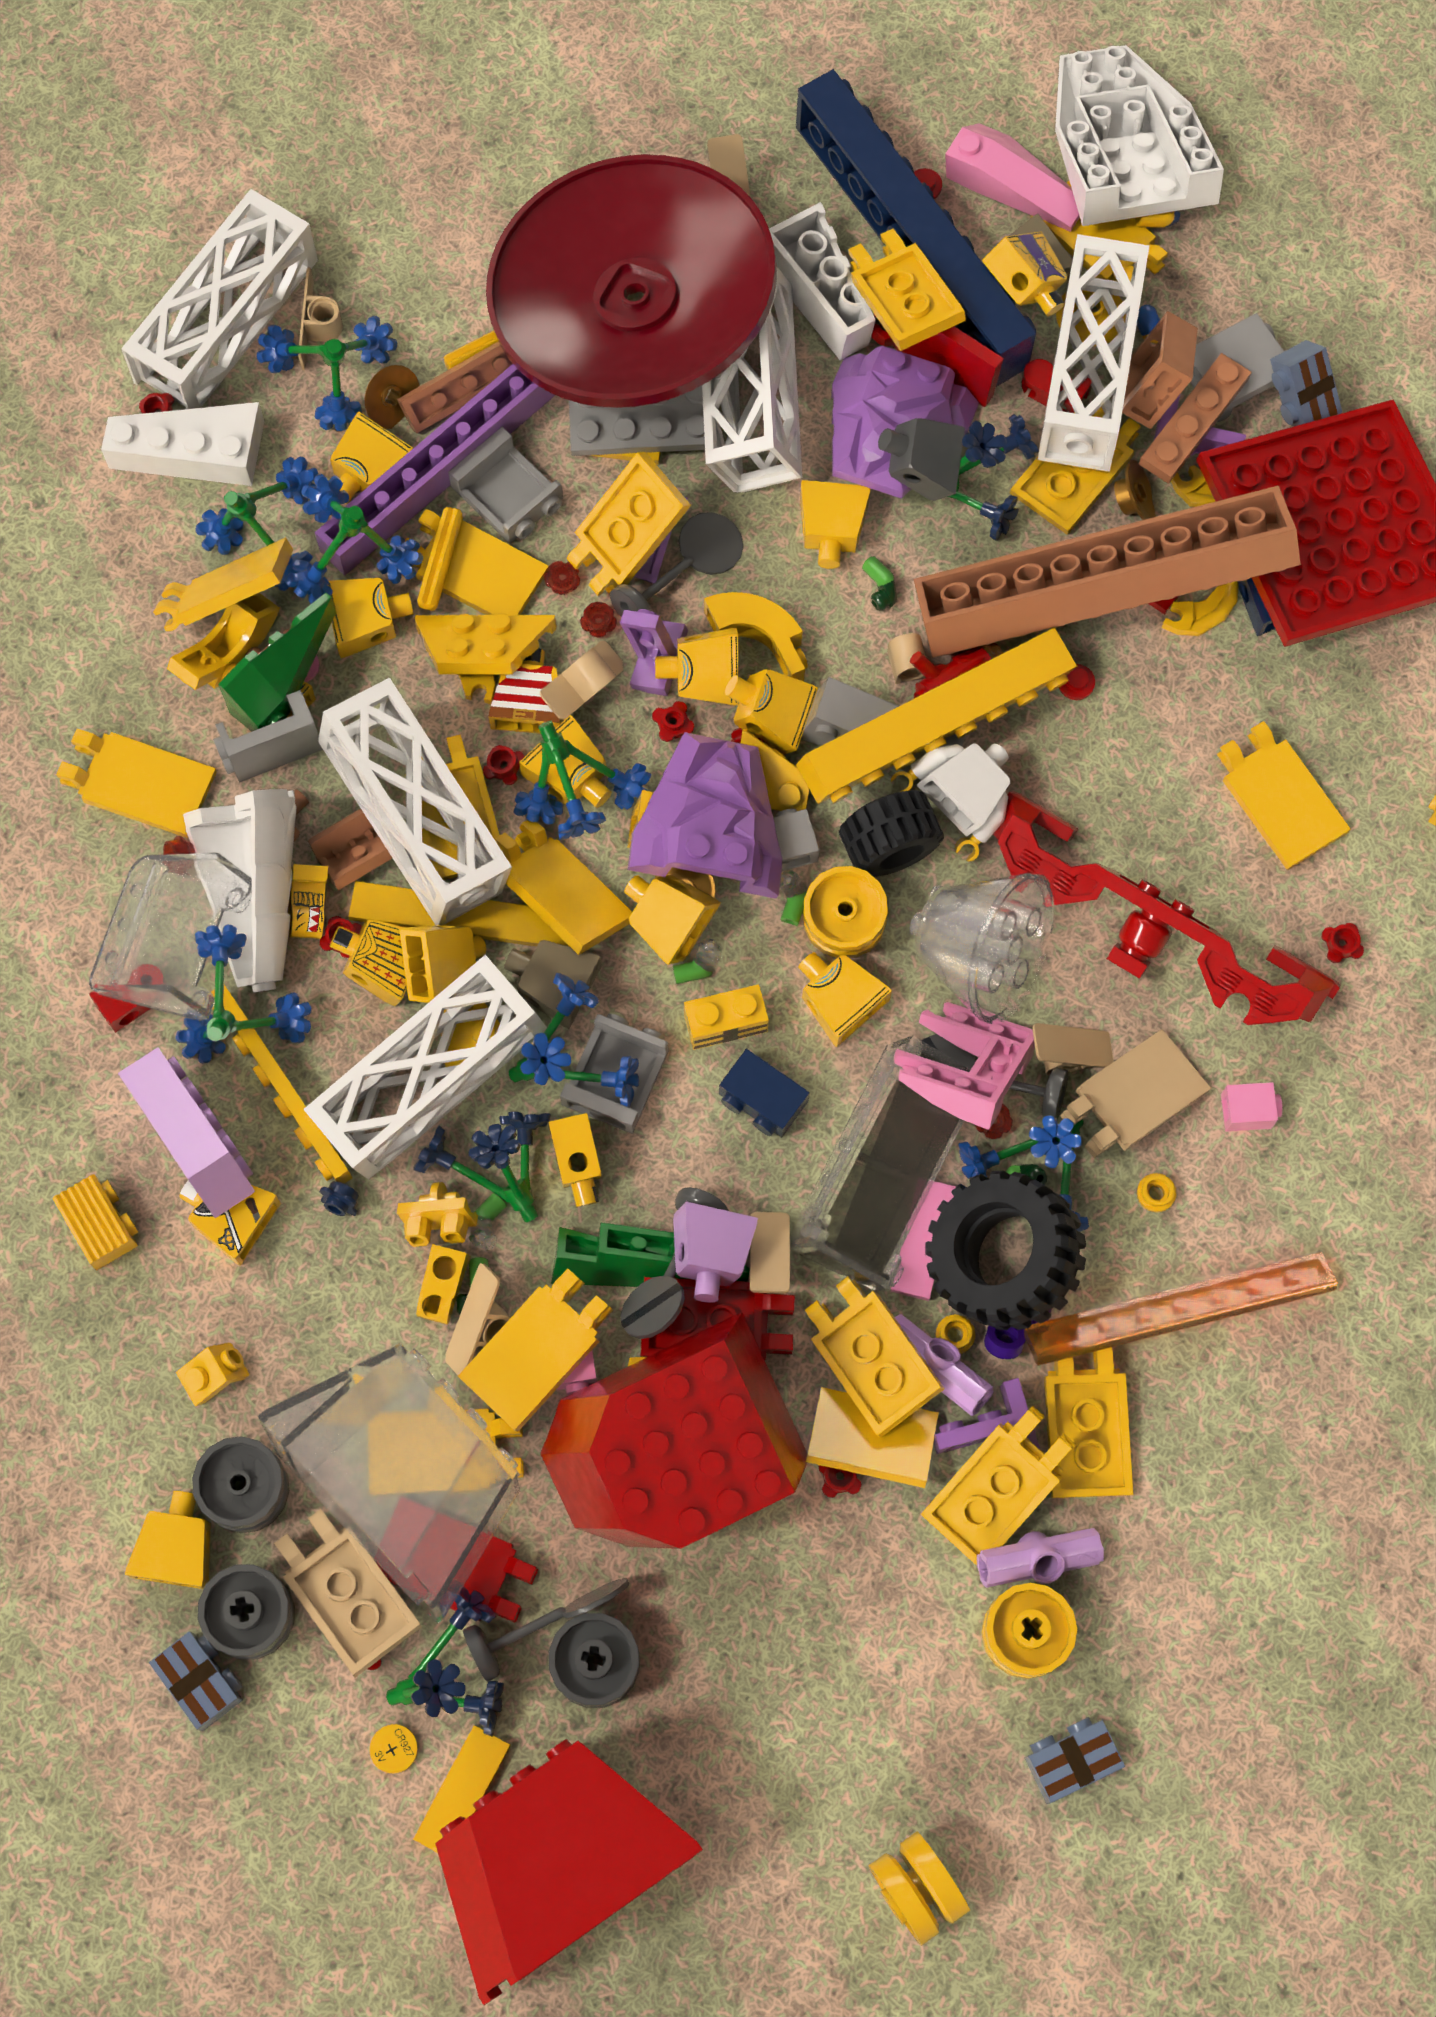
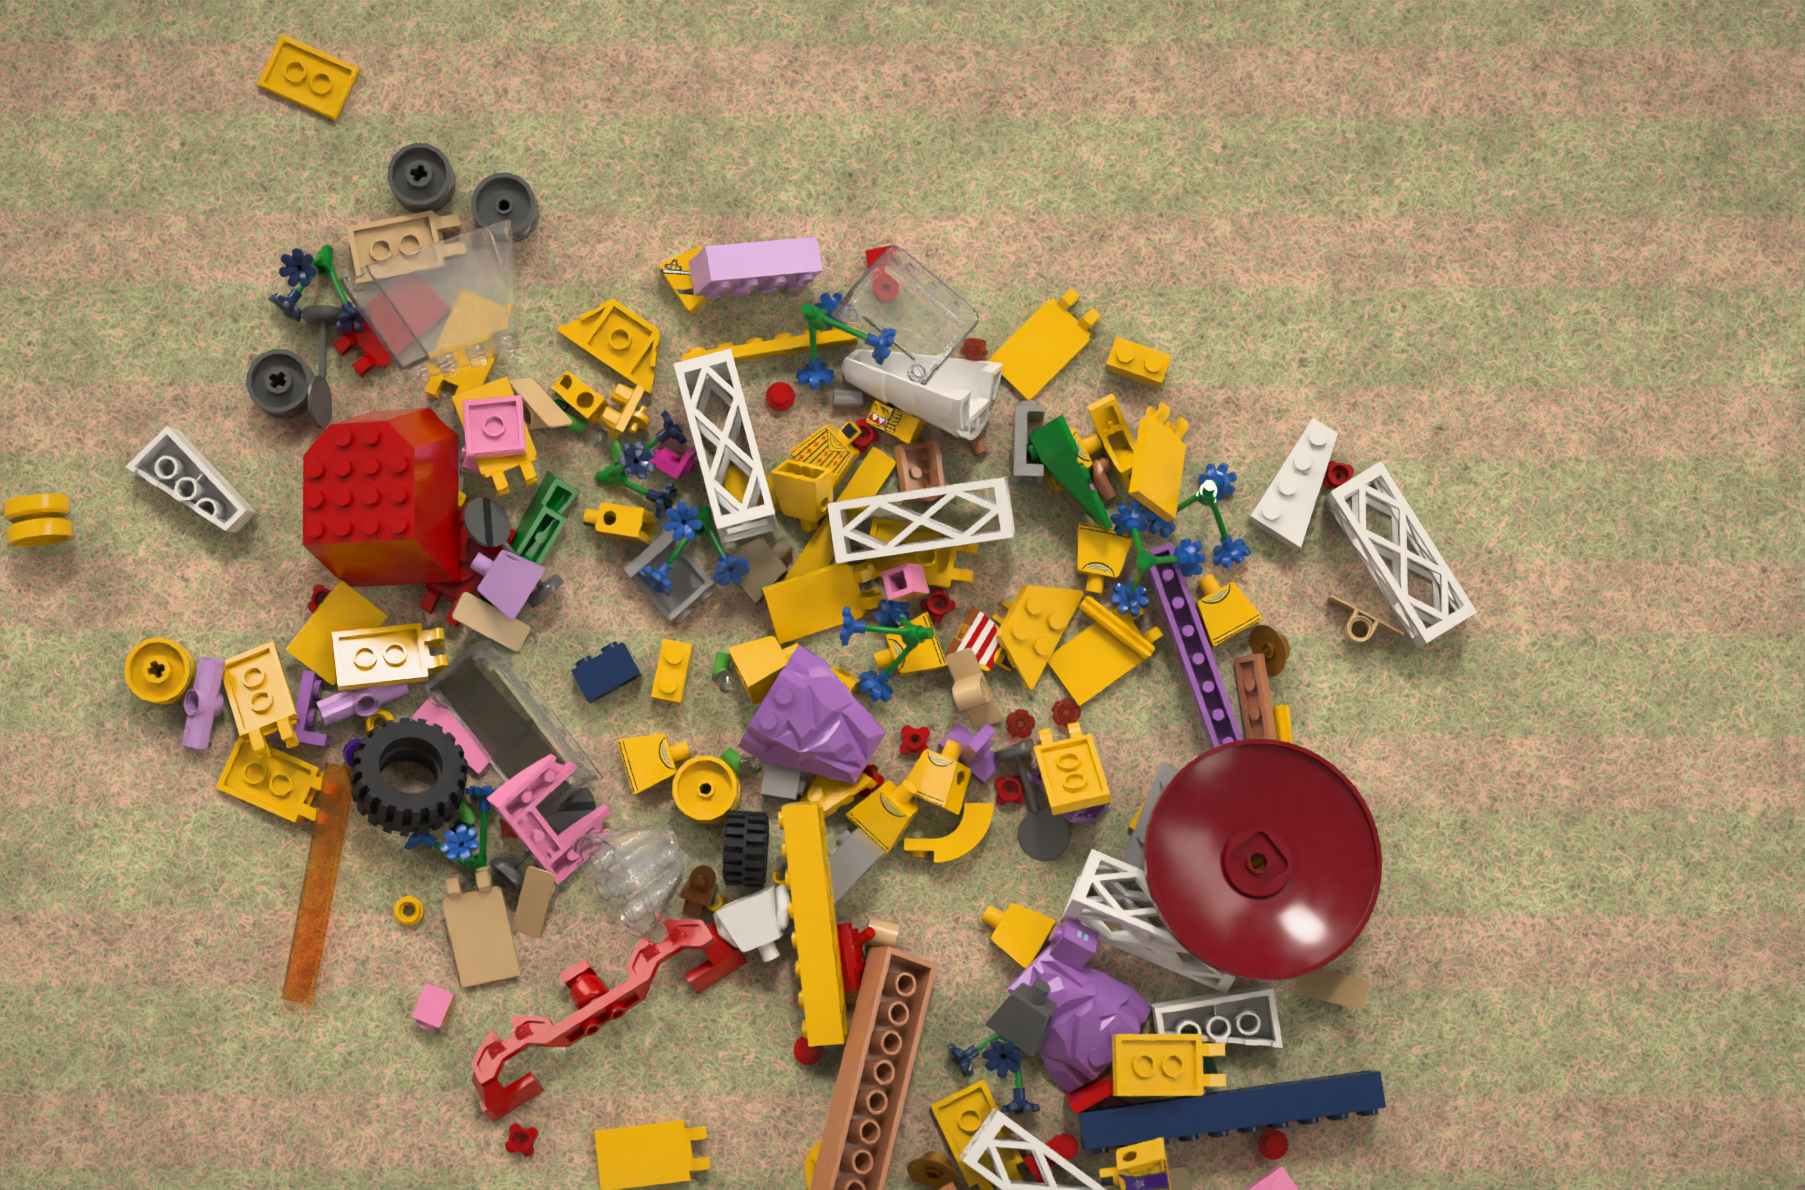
camera: 115 degrees right, 10 degrees up
(96, 1221) = (732, 188): yellow brick -> none
(116, 666) = (1138, 362): none -> yellow brick
(171, 1837) = (308, 77): none -> yellow tile
(173, 1546) = (487, 149): yellow torso -> none
(197, 1680) = (394, 129): brick -> none
(212, 1372) = (593, 223): yellow bracket -> none
(303, 972) = (847, 398): none -> light grey piece
(335, 1049) = (780, 396): none -> red plate
(336, 408) = (1279, 608): blue plant -> none
(339, 1198) = (670, 354): dark blue plate -> none
(351, 1270) = (618, 340): none -> yellow wing
(393, 1749) = (294, 235): yellow piece -> none
(463, 1785) = (245, 266): yellow tile -> none
(475, 1120) = (668, 461): none -> dark pink bracket
(496, 795) = (905, 582): none -> bright pink brick
(505, 487) = (1156, 704): light grey panel -> none
(529, 1352) = (494, 427): none -> bright pink tile
(552, 1862) = (160, 301): red windscreen -> none
(683, 589) = (1003, 796): none -> red plate
(772, 1714) = (190, 478): none -> white wedge
(818, 445) = (1073, 943): none -> medium lavender brick
(885, 582) = (954, 947): arm -> none
(966, 864) = (698, 890): none -> reddish brown hips
(1074, 1760) = (68, 661): brick -> none

